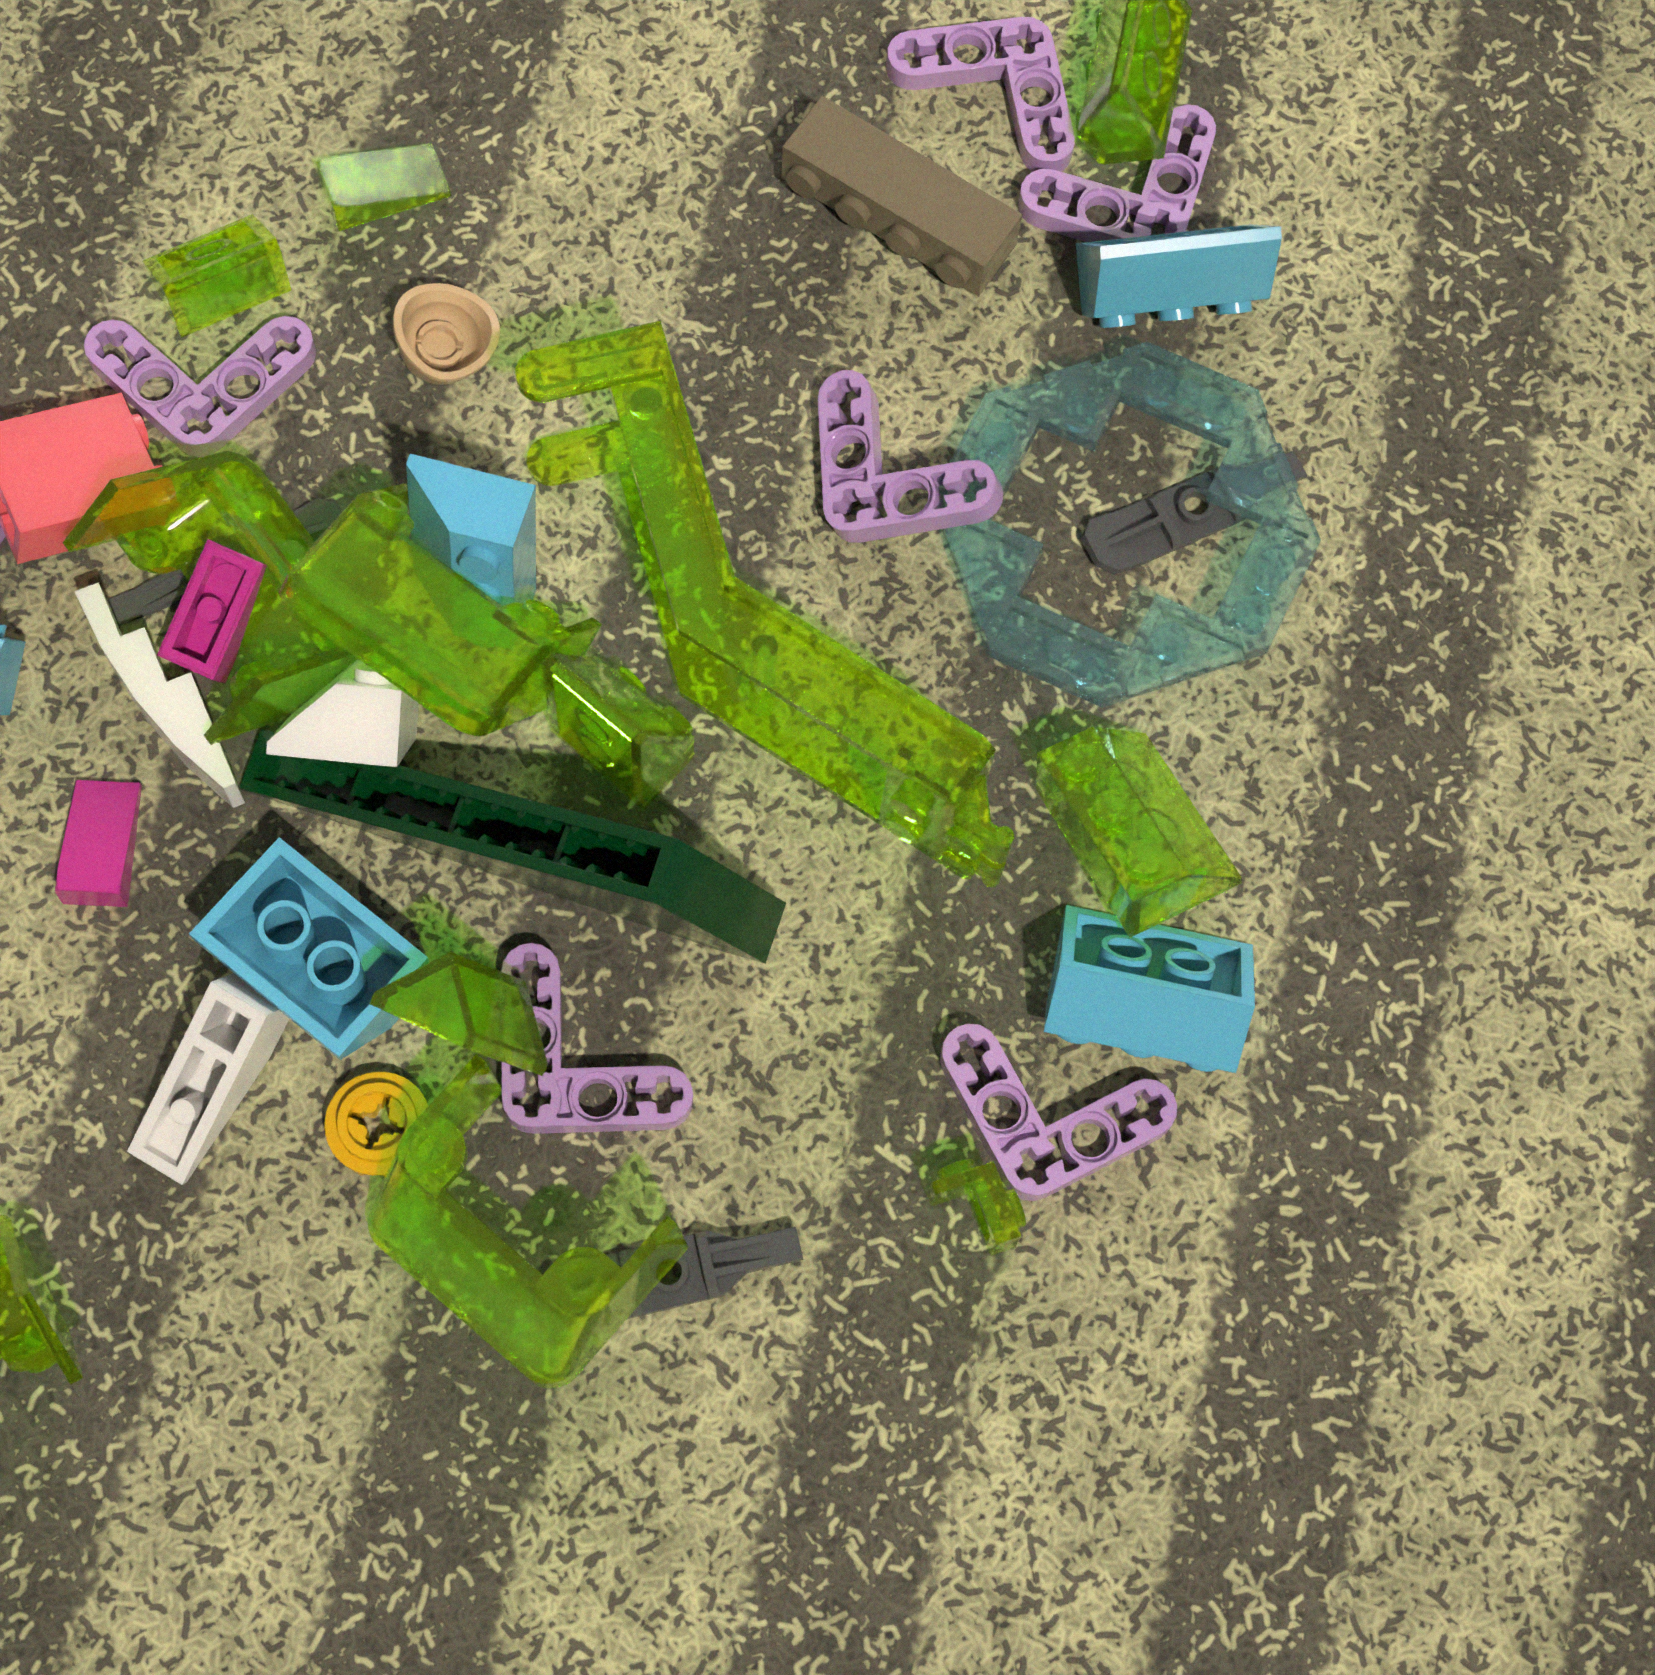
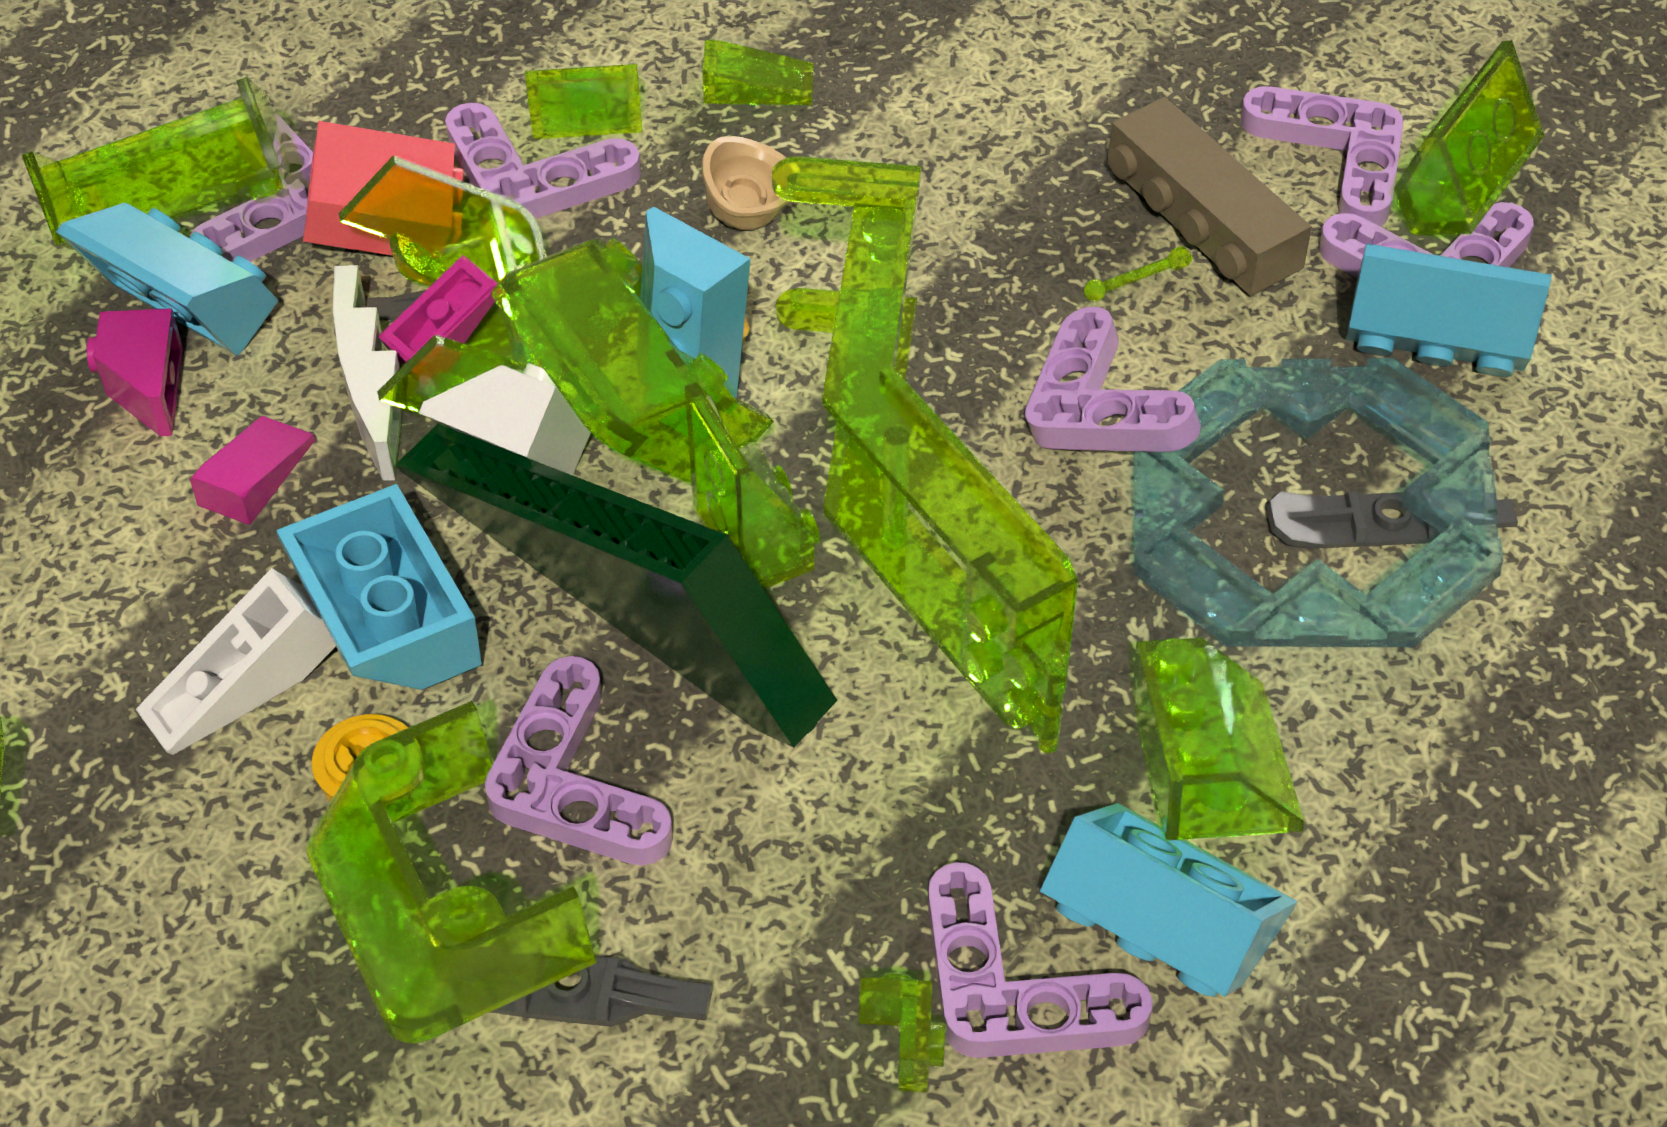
camera: 30 degrees right, 20 degrees down
(470, 1008) = (489, 664): clear neon green slope -> none
(829, 338) = (1177, 259): none -> clear neon green hinge

